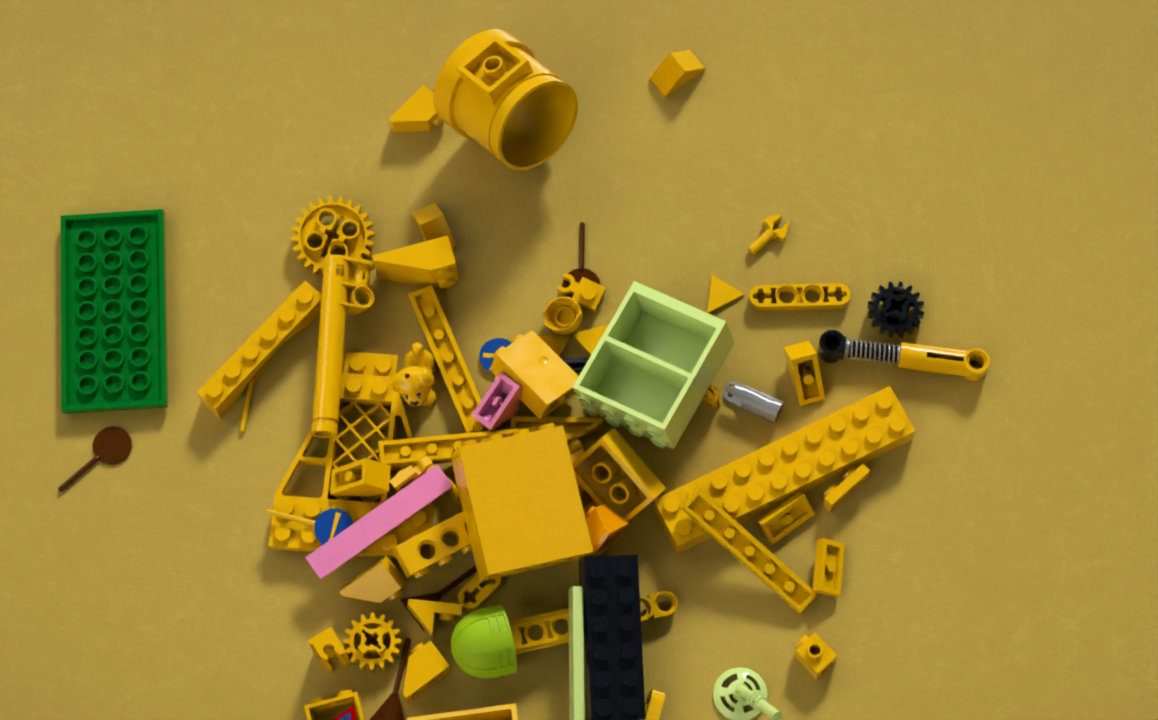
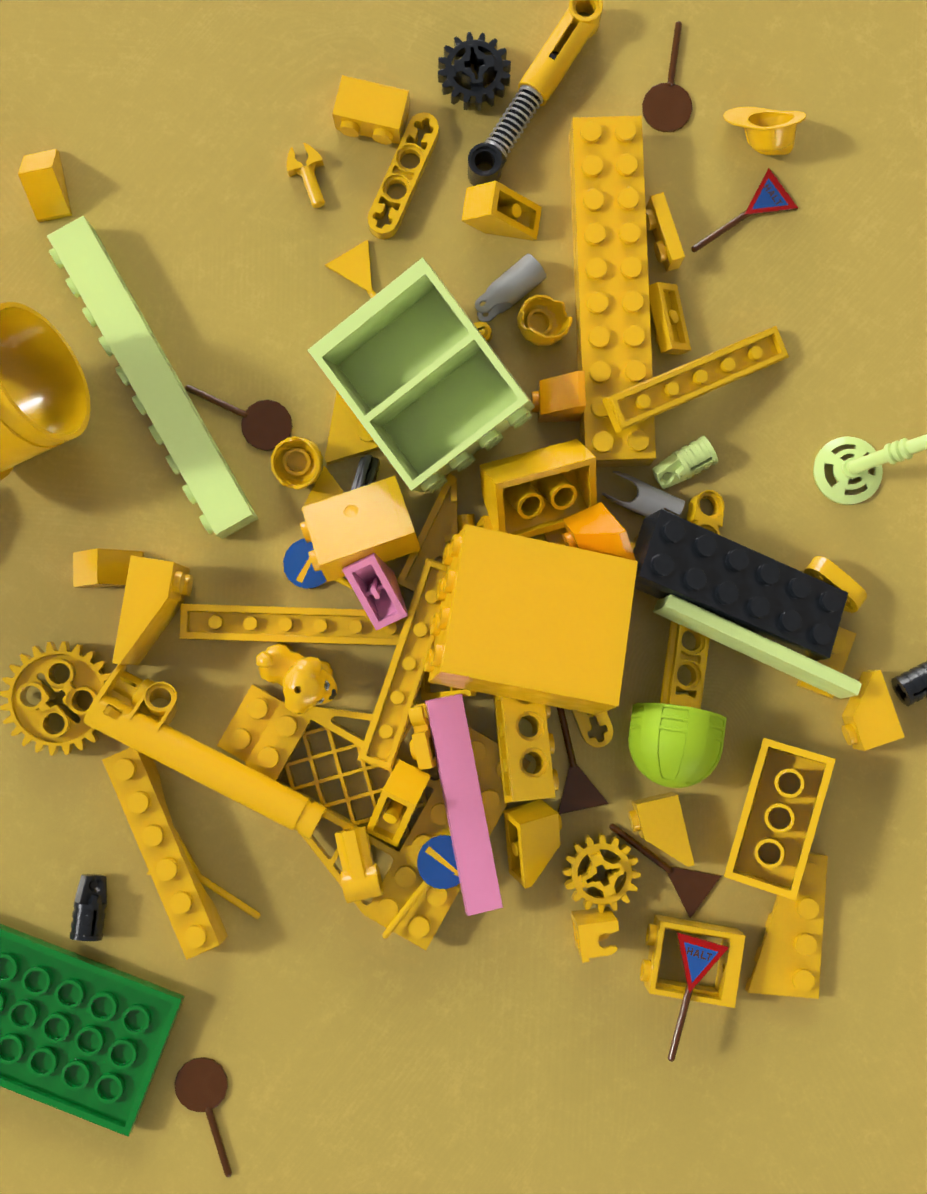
camera: 70 degrees left, 15 degrees up
(201, 319) = (89, 908): none -> black hinge
(301, 476) = (360, 874): none -> yellow piece
(425, 611) = (592, 791): yellow slope -> none
(575, 199) = (151, 377): none -> yellowish green brick
(586, 292) = (279, 423): yellow plate -> none
(649, 562) = (648, 499): none -> light grey piece
(688, 575) = (685, 463): none -> yellowish green hinge
(689, 465) = (560, 398): none -> light orange slope
(741, 432) = (543, 320): none -> yellow hair
(814, 654) = (847, 362): yellow brick -> none
(828, 567) = (751, 298): yellow plate -> none
(832, 254) = (371, 110): none -> yellow brick
(911, 551) = (768, 198): none -> piece
(945, 453) = (667, 104): none -> reddish brown piece
(958, 522) = (767, 129): none -> yellow piece

